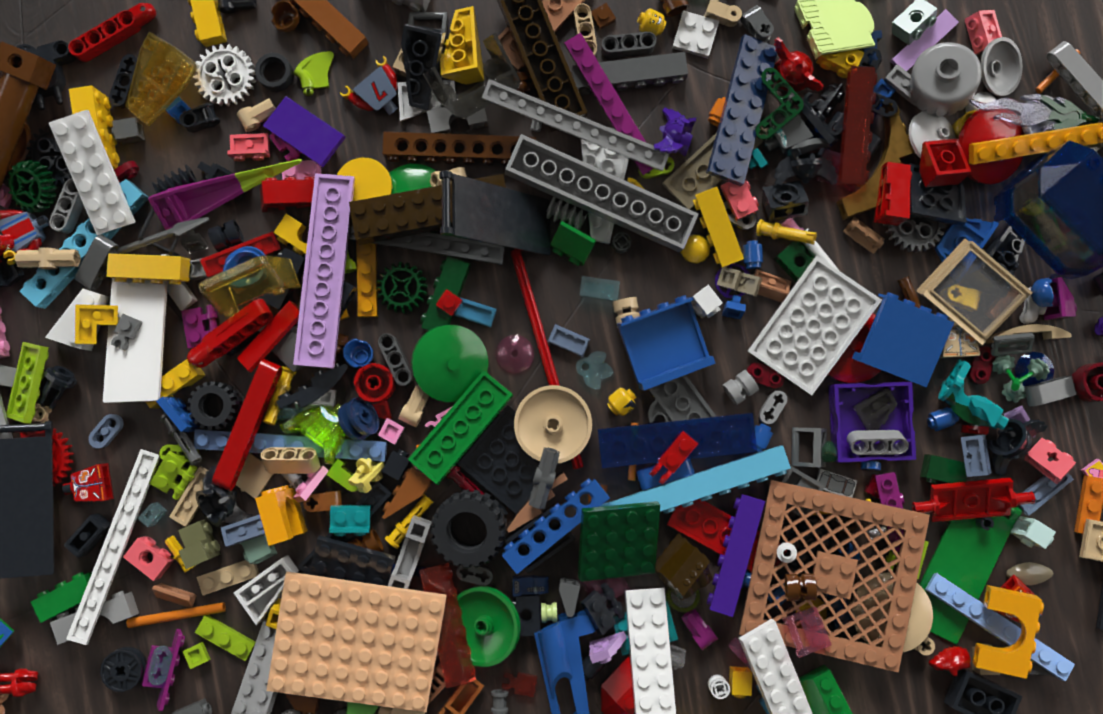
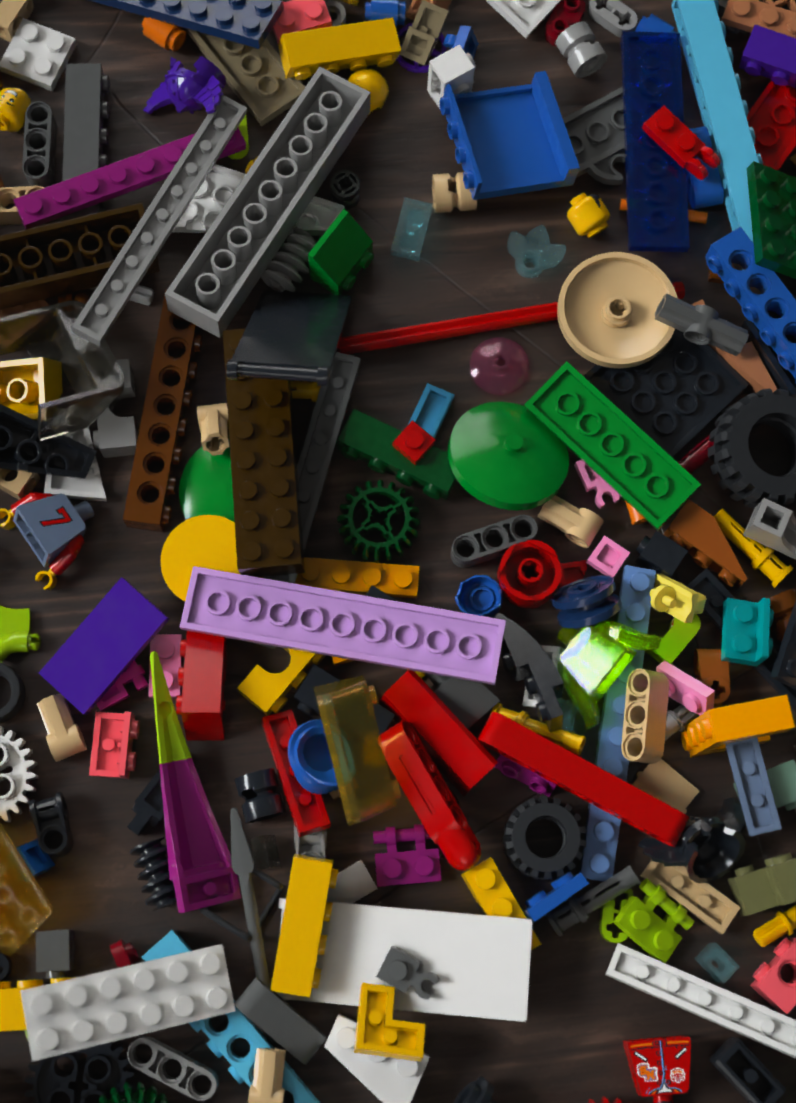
camera: 90 degrees left, 10 degrees down
(106, 430) = (570, 1034): sand blue plate -> none
(568, 340) = (487, 282): sand blue plate -> none

